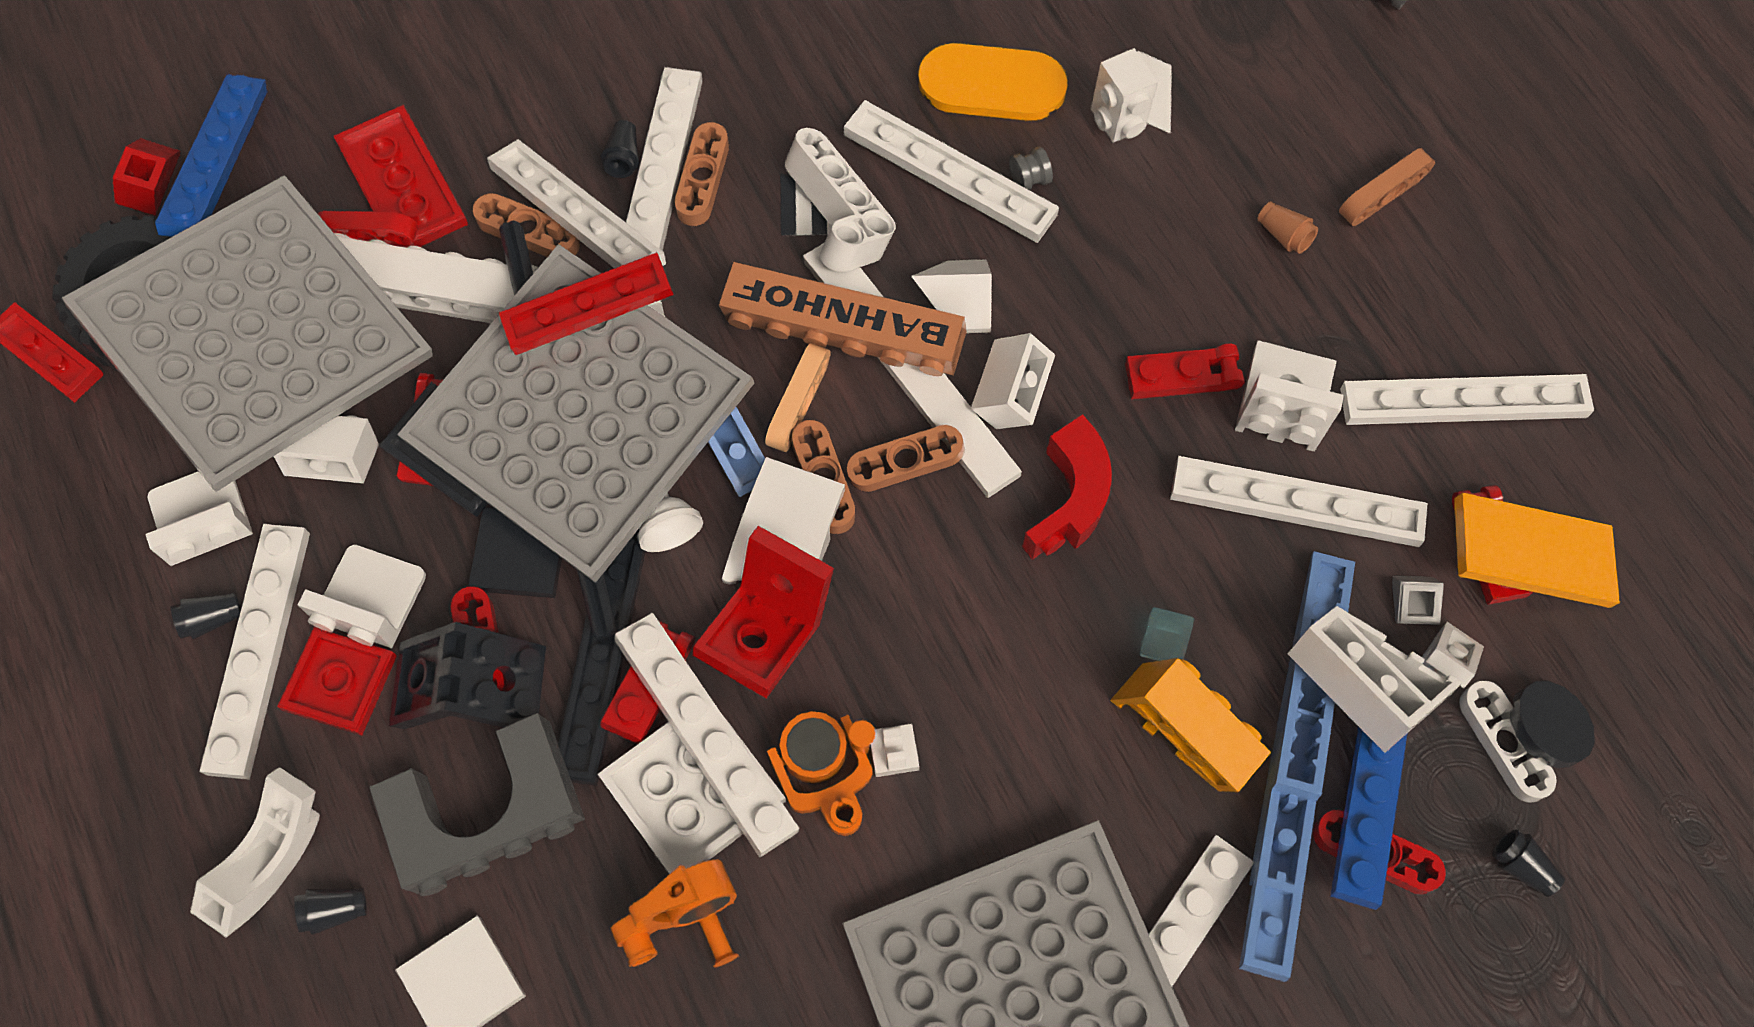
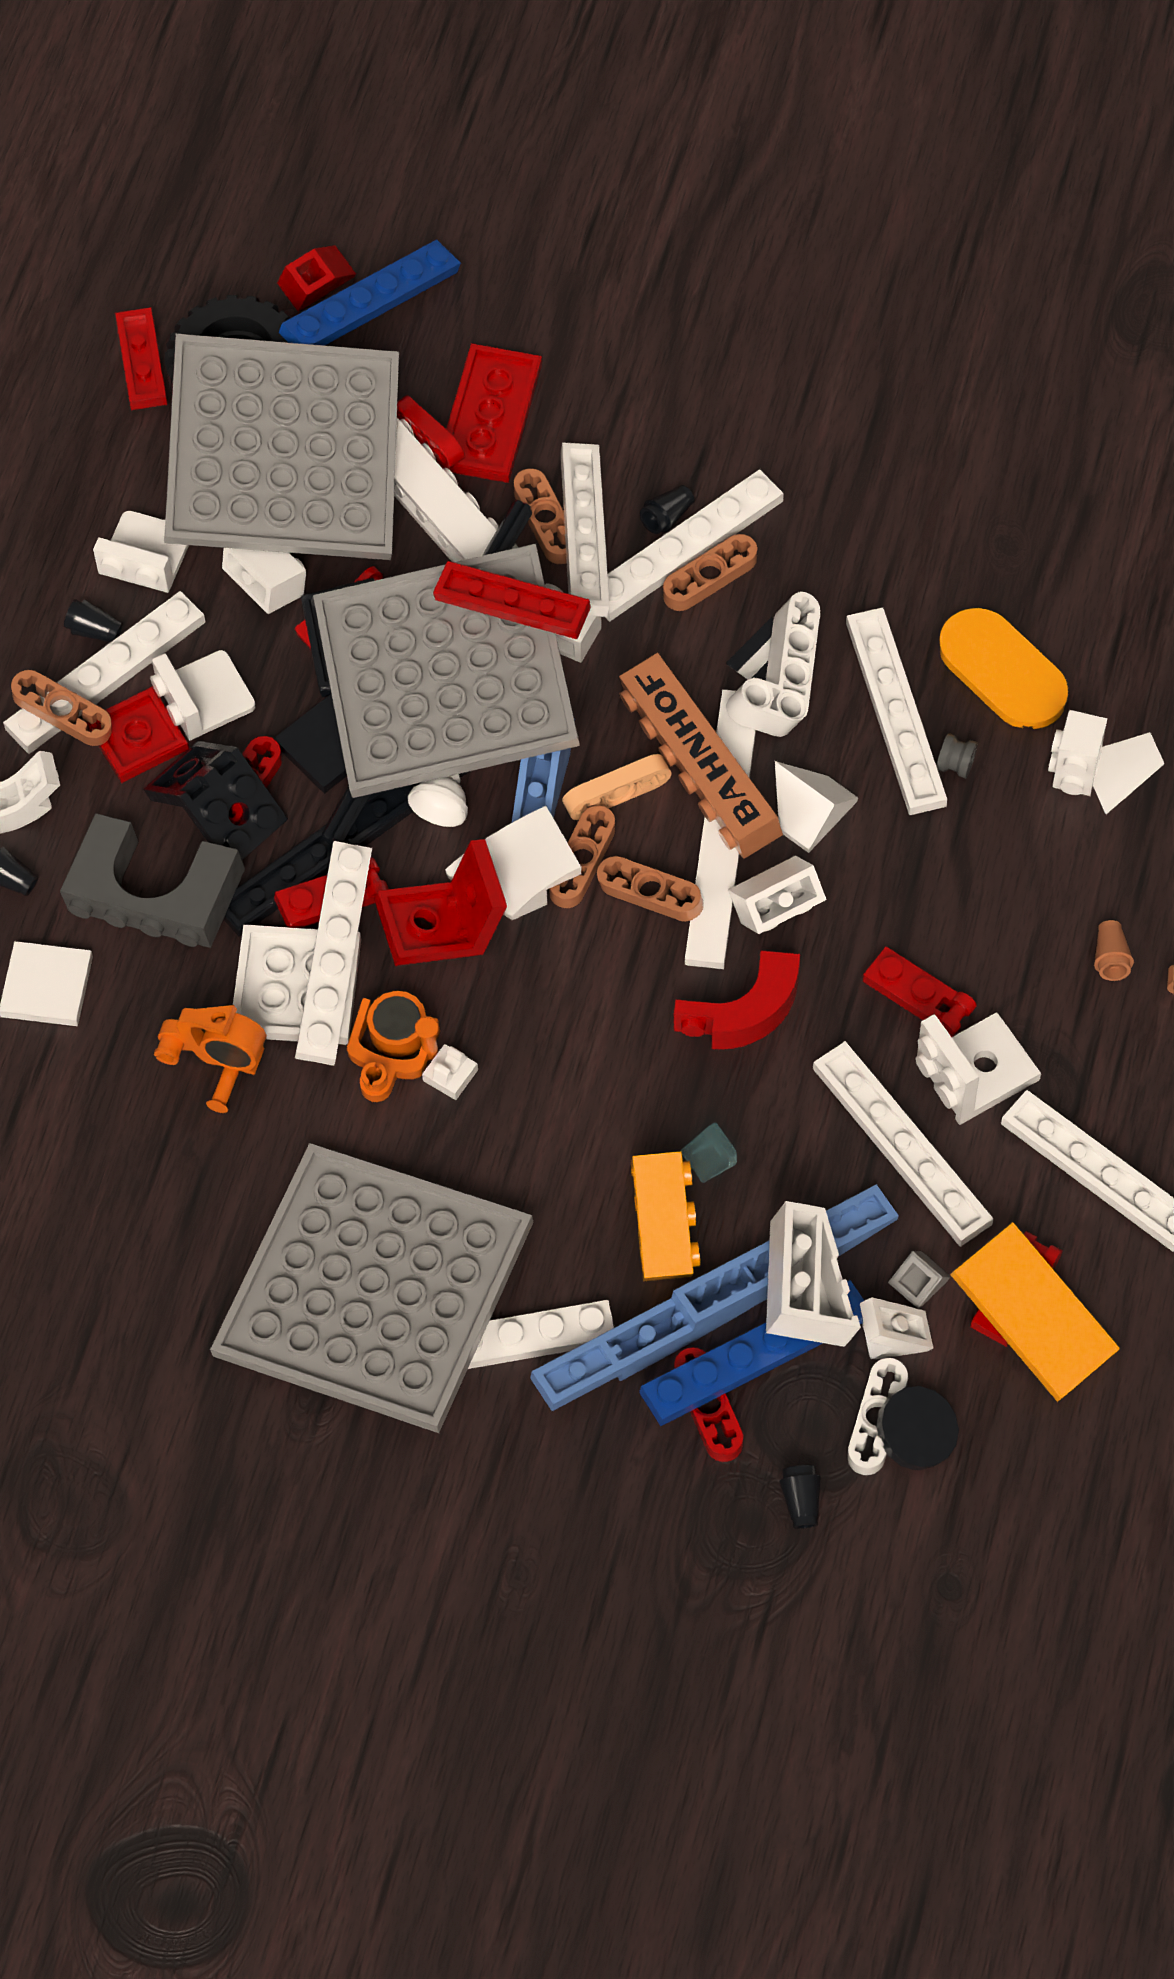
camera: 45 degrees right, 5 degrees down
(214, 731) = (32, 704): none -> nougat beam

